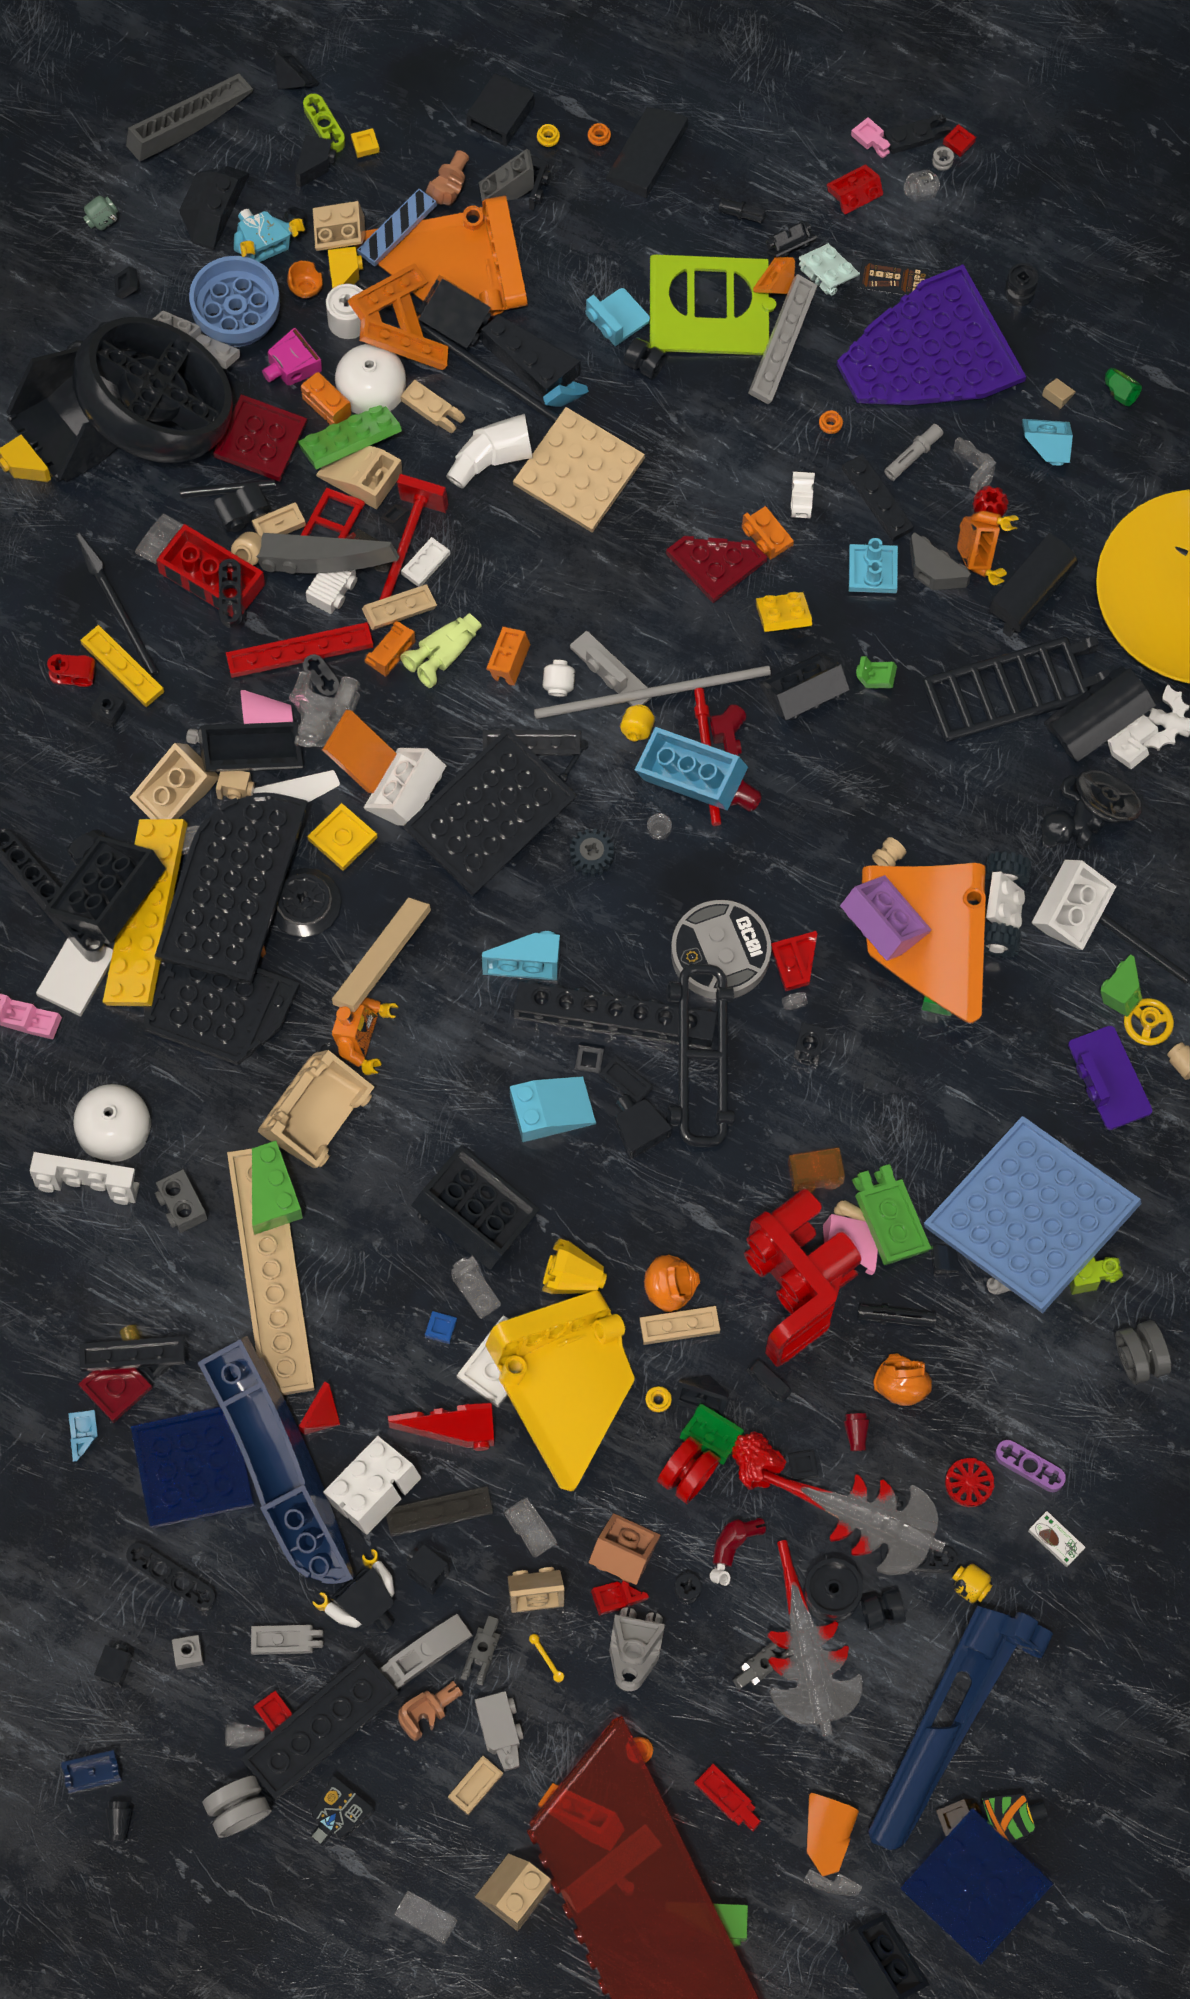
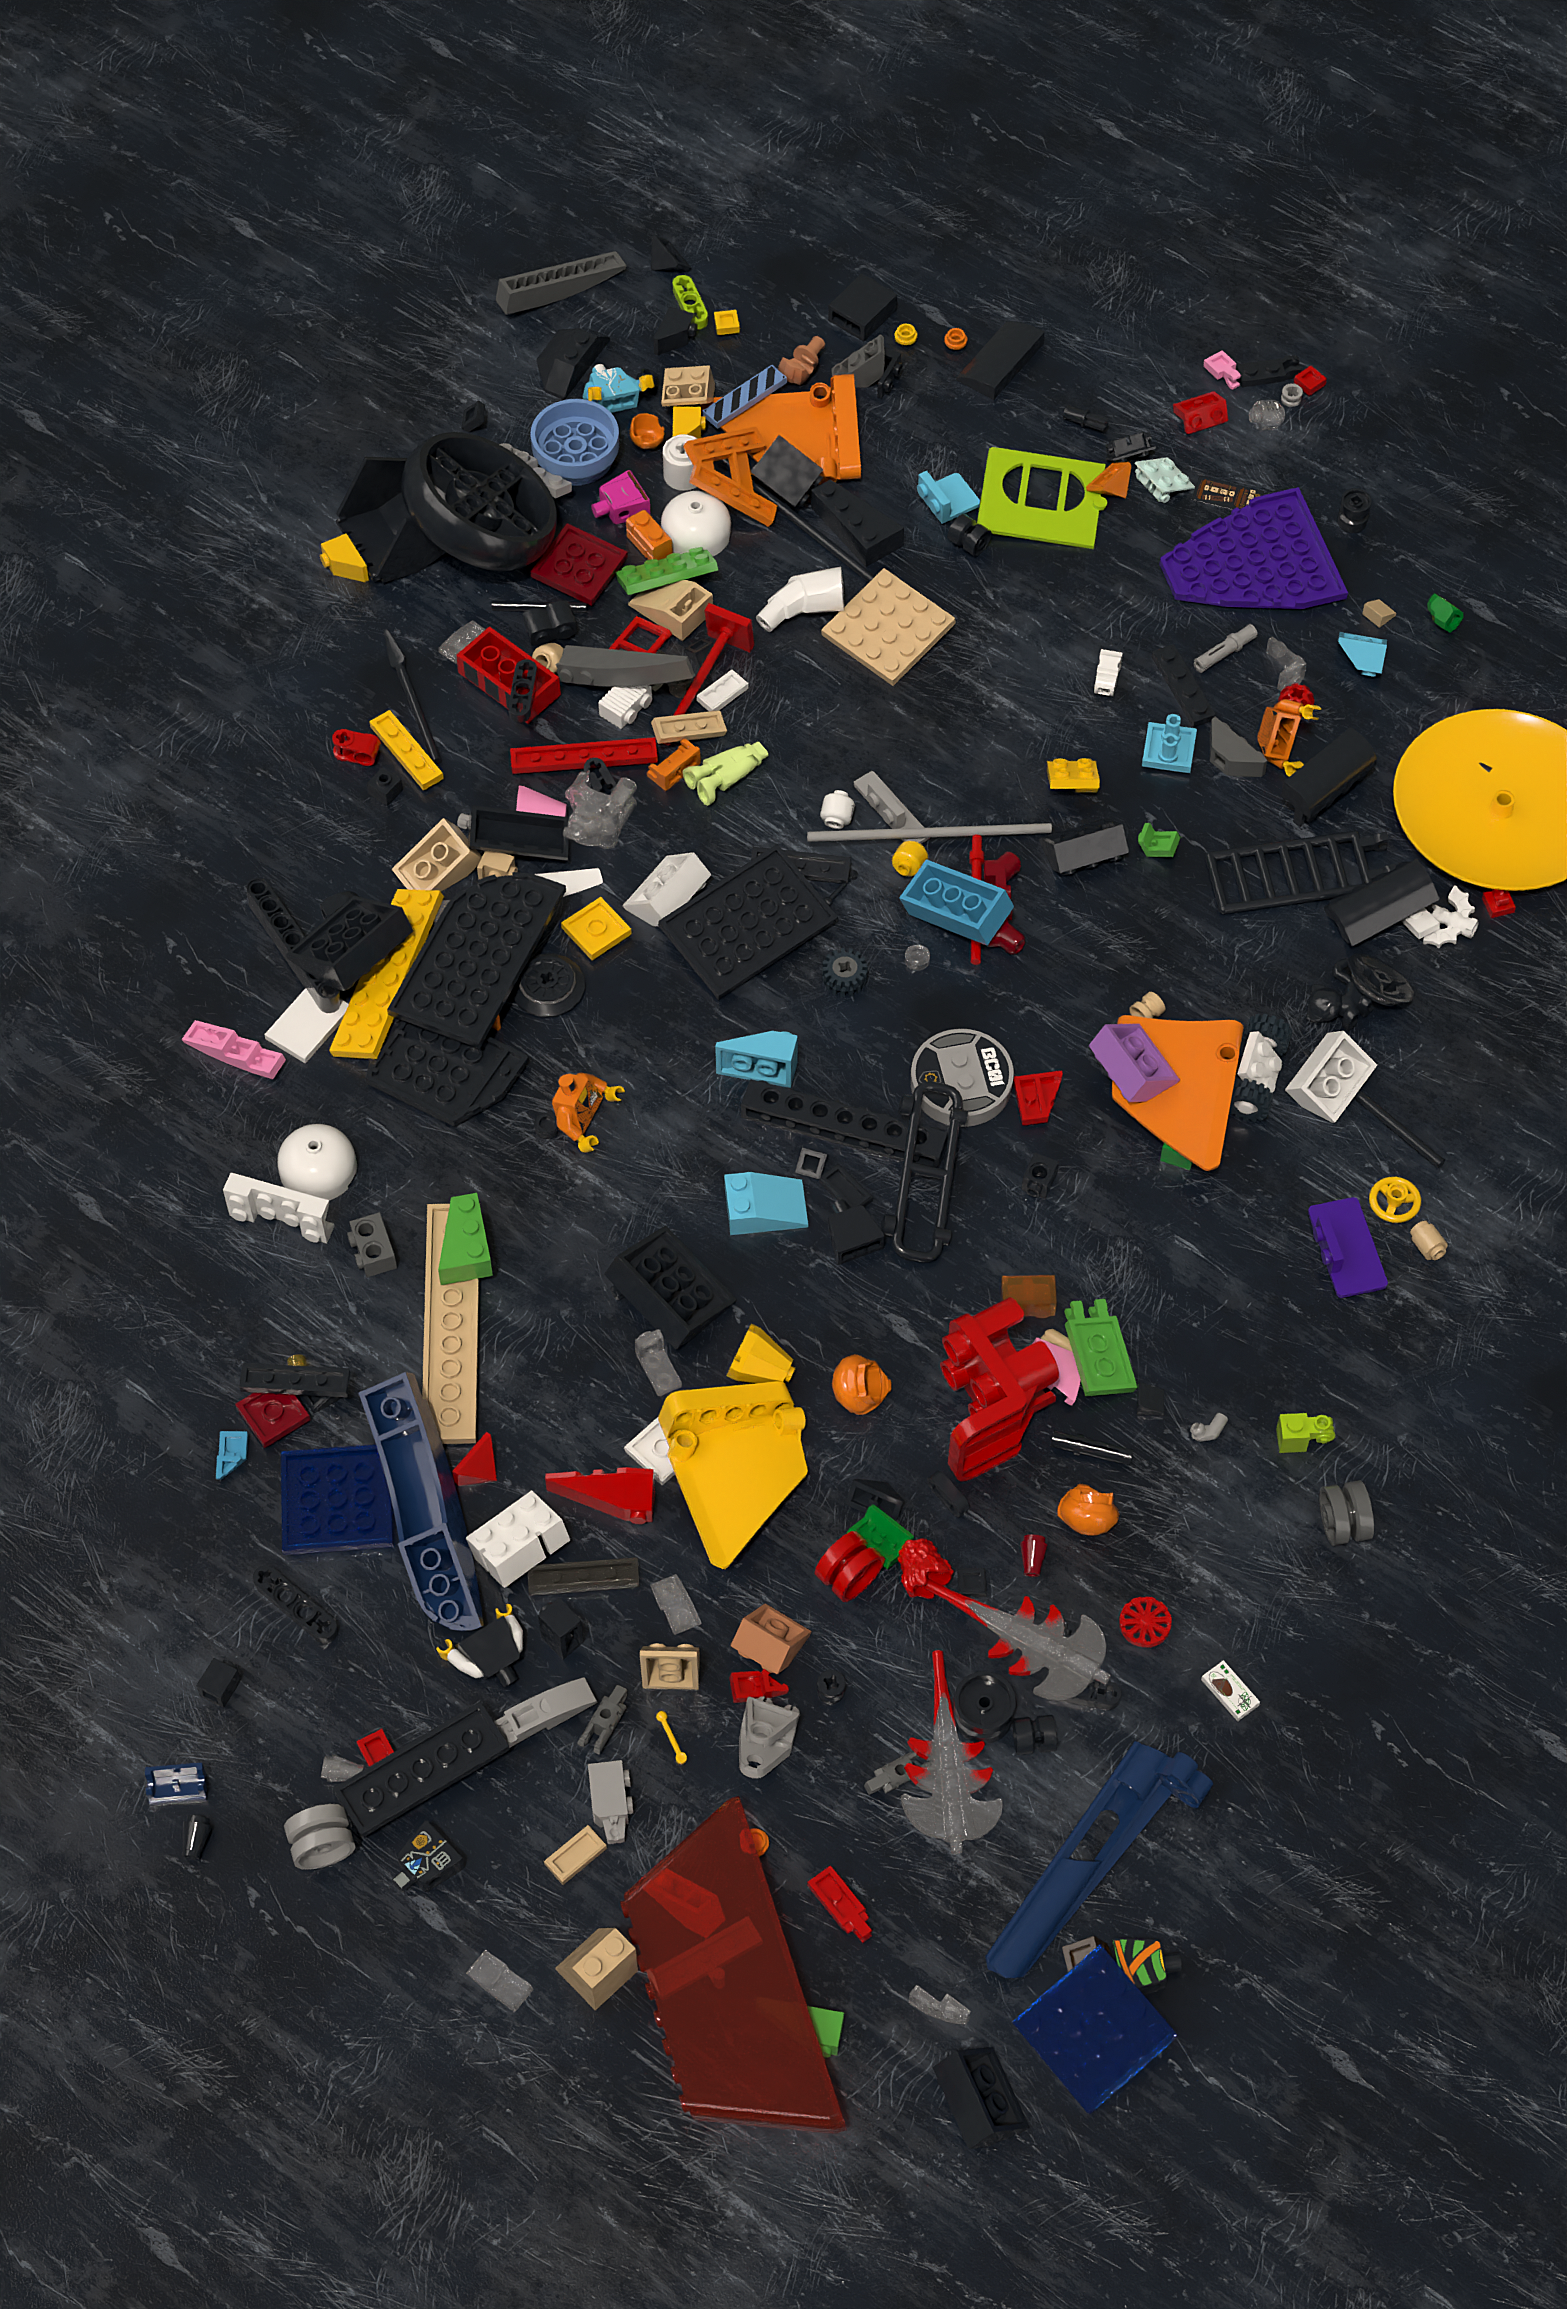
camera: 10 degrees right, 10 degrees down
(100, 213) = (460, 354): sand green head -> none
(191, 1660) = (298, 1687): light grey plate -> none
(280, 521) = (587, 637): tan plate -> none
(284, 1639) = (401, 1681): light grey hinge -> none
(315, 1107) = (526, 1173): tan windscreen -> none
(359, 751) = (626, 849): orange tile -> none
(381, 954) = (615, 1036): tan tile -> none
(426, 1706) = (535, 1767): nougat piece -> none
(431, 406) = (752, 556): tan hinge -> none
(440, 1327) = (616, 1399): blue tile -> none
(508, 655) = (791, 783): orange hinge -> none
(563, 395) = (883, 558): dark azure slope -> none
(658, 1391) = (830, 1490): yellow plate -> none
(679, 1325) = (863, 1428): tan plate -> none
(715, 563) = (1012, 725): dark red plate -> none
(728, 1541) = (882, 1644): dark red arm -> none
(767, 532) = (1067, 704): orange bracket -> none
(782, 339) = (1108, 534): light grey plate -> none
(794, 1001) = (1030, 1134): clear tile -> none
(828, 1832) = (943, 1952): orange panel -> none
(830, 416) = (1146, 612): orange plate -> none
(972, 1583) = (1133, 1721): yellow head -> none
(1032, 1214) = (1247, 1364): medium blue plate -> none
(1050, 1468) = (1213, 1625): medium lavender beam -> none
(1123, 989) = (1372, 1162): bright green slope -> none
(1127, 749) = (1404, 940): white bracket -> none

